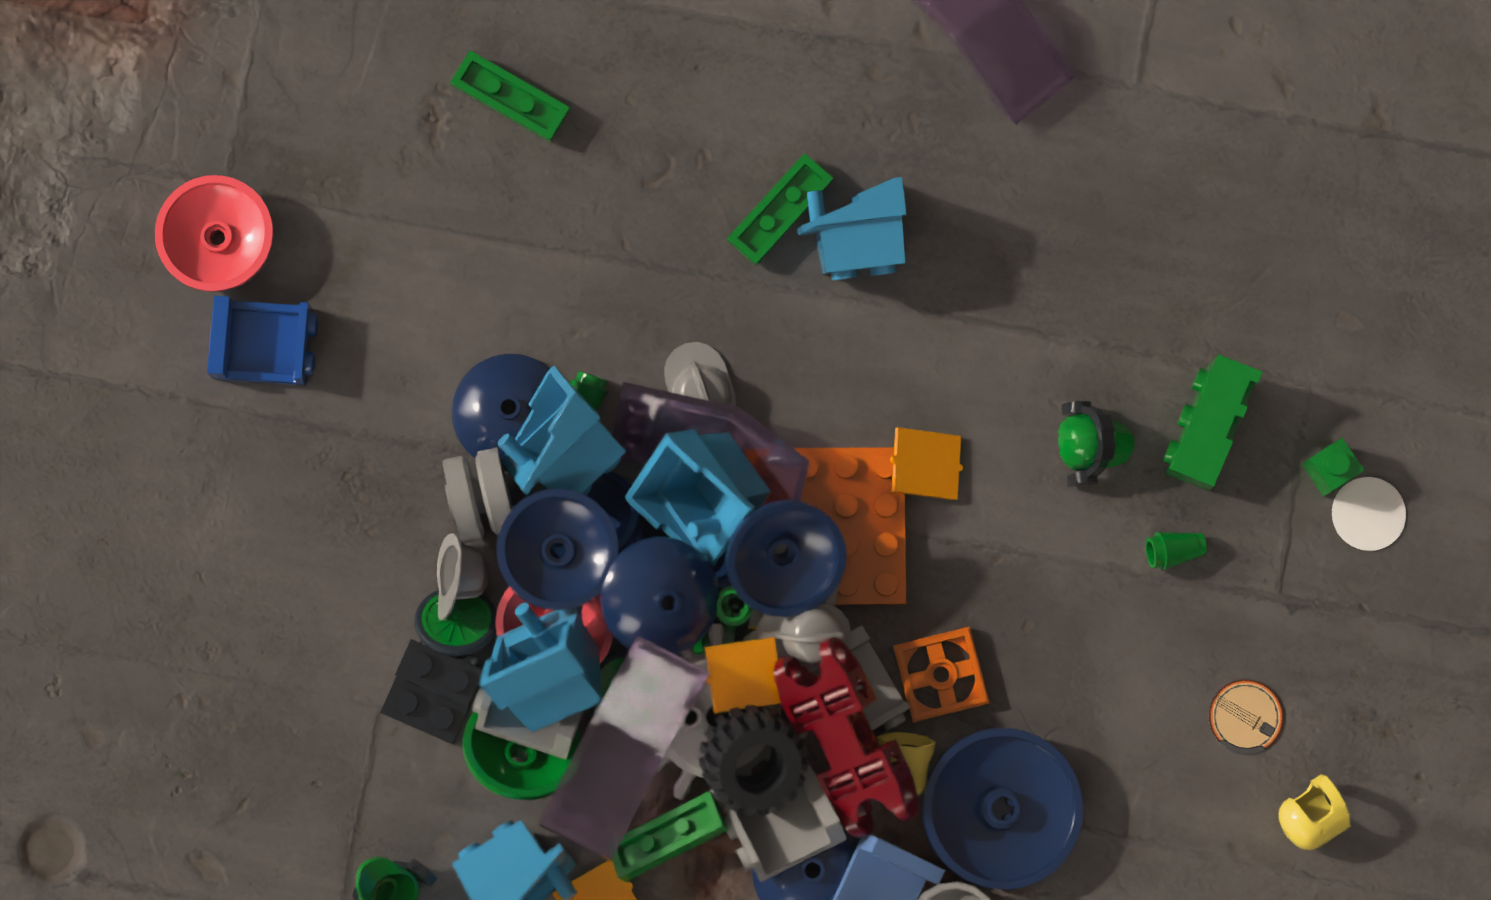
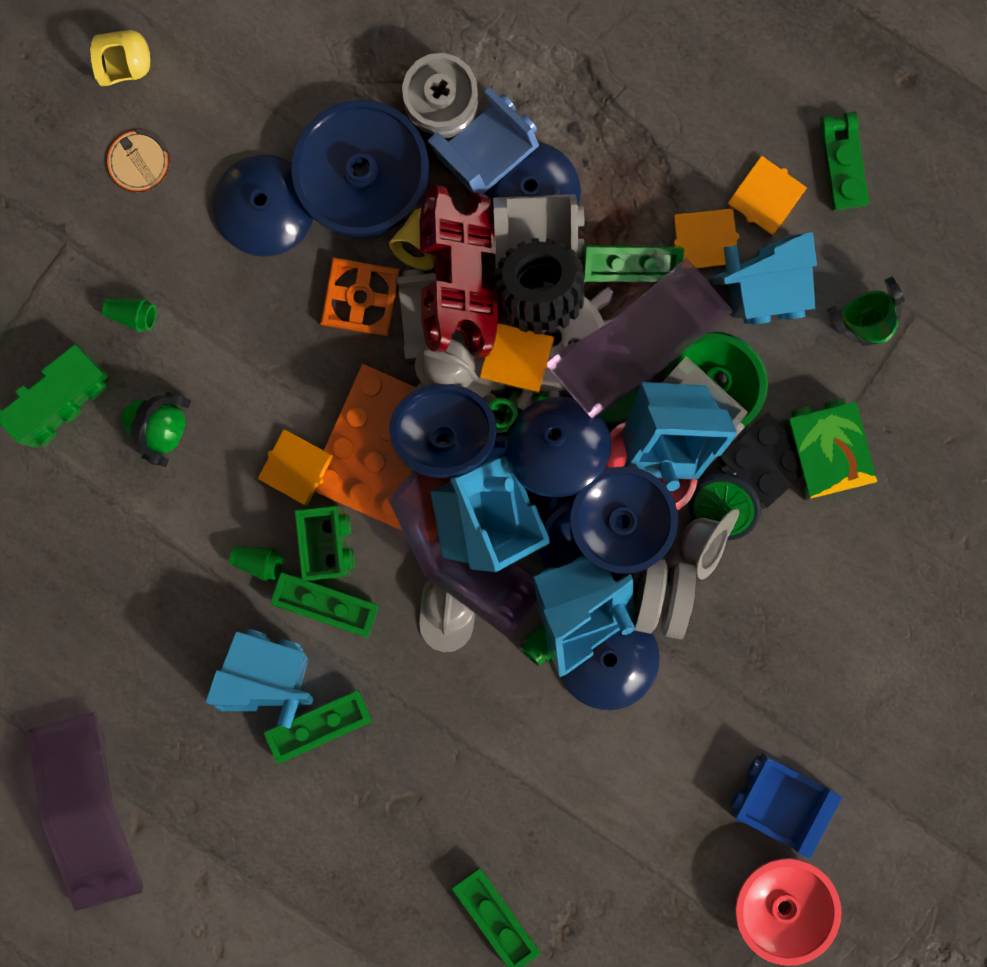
camera: 155 degrees left, 5 degrees up
(369, 732) = (831, 448): none -> green panel
(830, 336) = (324, 604): none -> green plate
(866, 395) = (317, 545): none -> green piece
(920, 349) = (257, 561): none -> green cone
(1096, 695) = (265, 228): none -> dark blue dish

